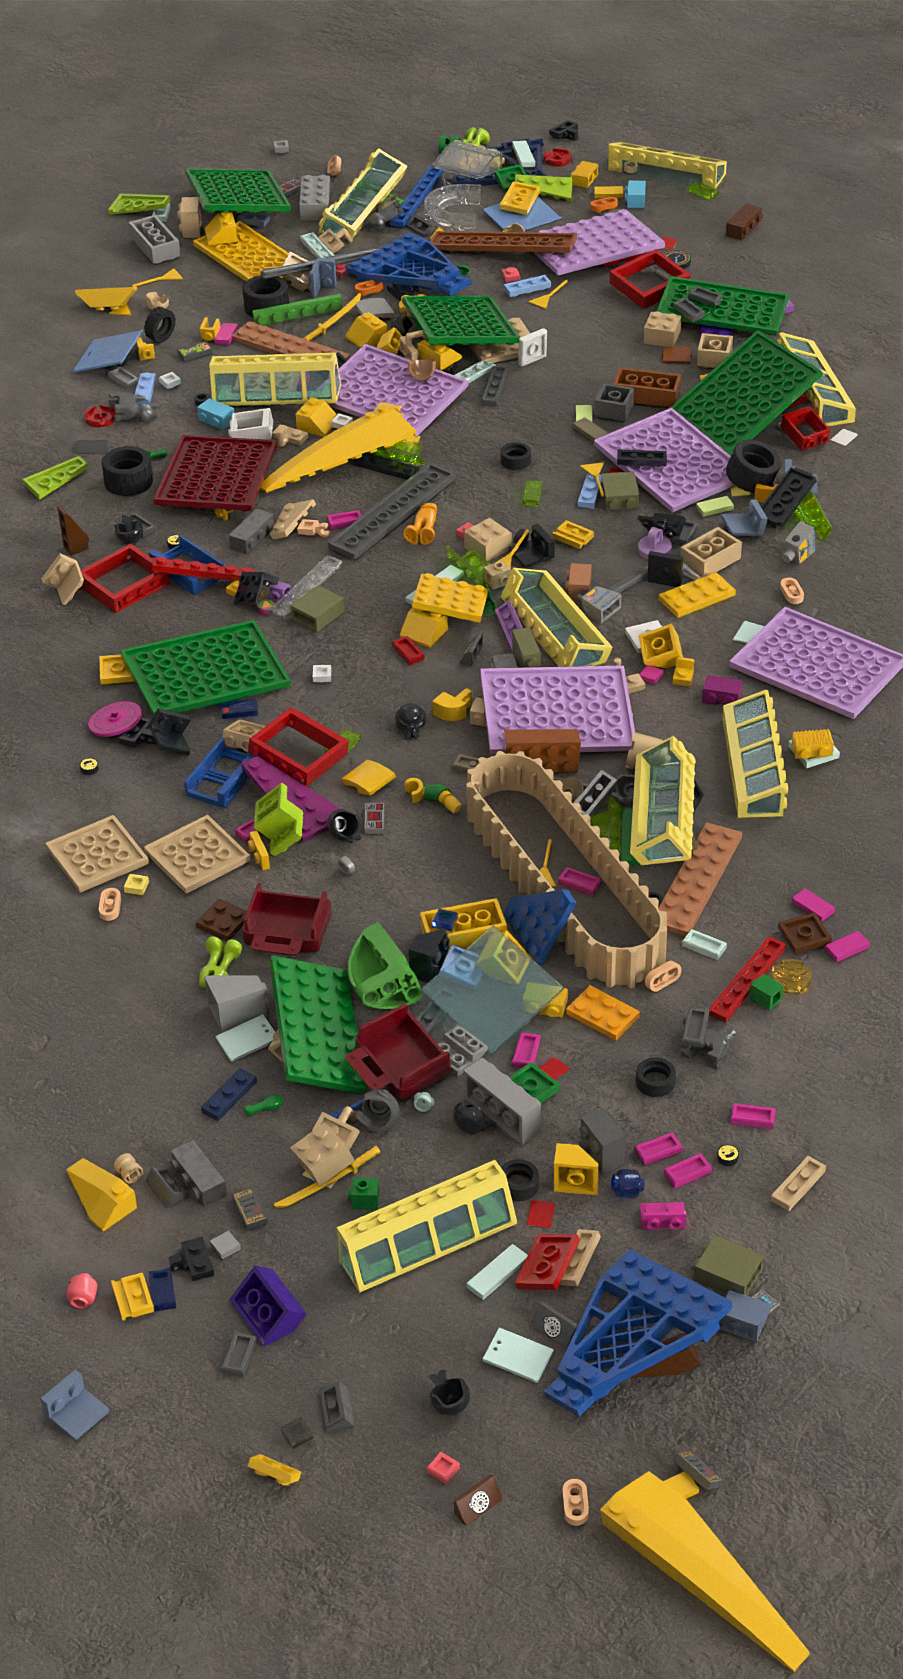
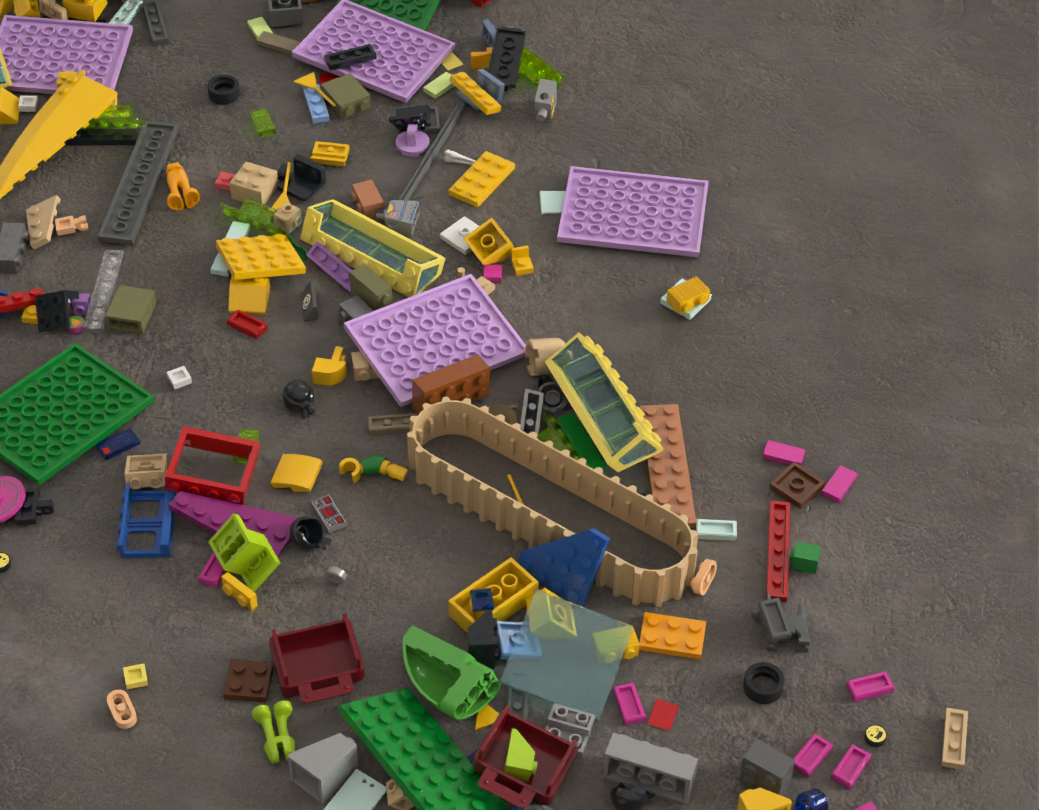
camera: 30 degrees left, 5 degrees up
(97, 853) = (71, 657): tan plate -> none
(168, 730) = (62, 493): black bracket -> none
(197, 854) = (176, 619): tan plate -> none
(342, 519) = (95, 206): dark pink tile -> none
(394, 1051) = (519, 757): none -> lime slope
(421, 369) = (82, 25): medium nougat helmet -> none
(421, 1105) = (571, 798): light aqua plate -> none
(535, 1082) = (661, 733): green plate -> none
(579, 881) = (564, 507): dark pink tile -> none
(665, 569) = (443, 163): black plate -> none
(711, 552) = (472, 132): tan brick -> none
(721, 690) = (569, 268): magenta brick -> none
(738, 519) = (475, 93): none -> yellow plate
(752, 465) = (457, 35): black tyre -> none
(755, 756) = (643, 324): window -> none
(792, 590) = (565, 148): light nougat plate -> none
(801, 974) = (810, 523): clear yellow plate -> none

